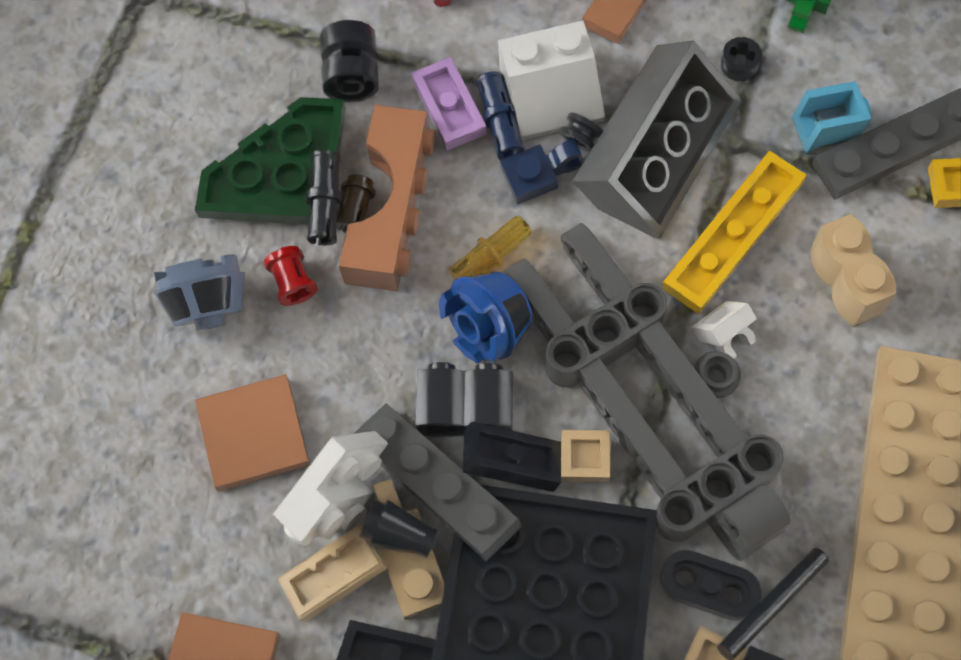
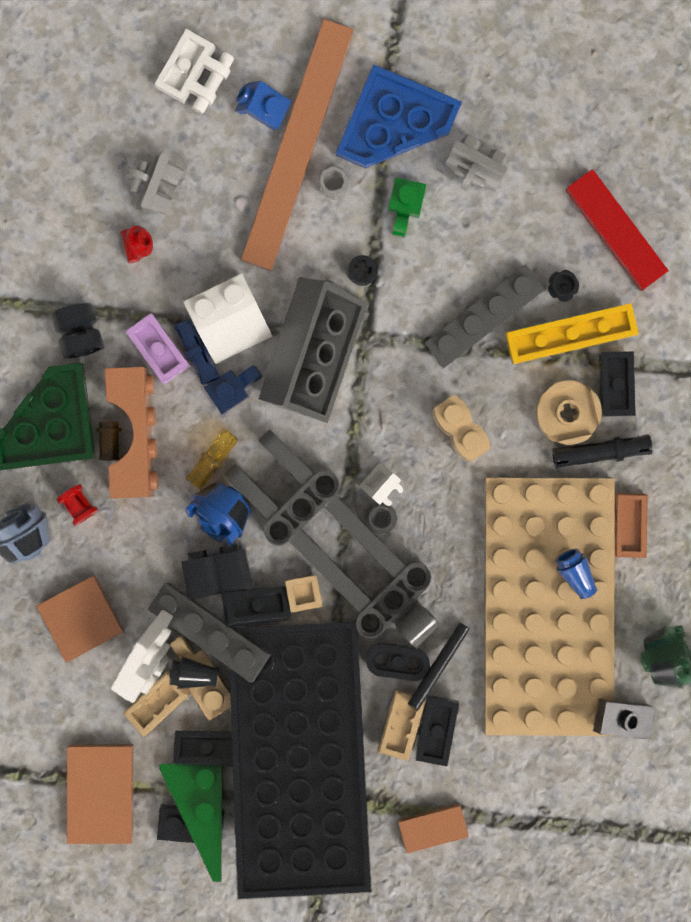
camera: 20 degrees left, 20 degrees up
(324, 198) = (86, 448): black pin -> none
(581, 130) = (257, 356): black bush -> none
(733, 232) = (377, 411): yellow plate -> none
(831, 115) = (433, 309): medium azure window -> none

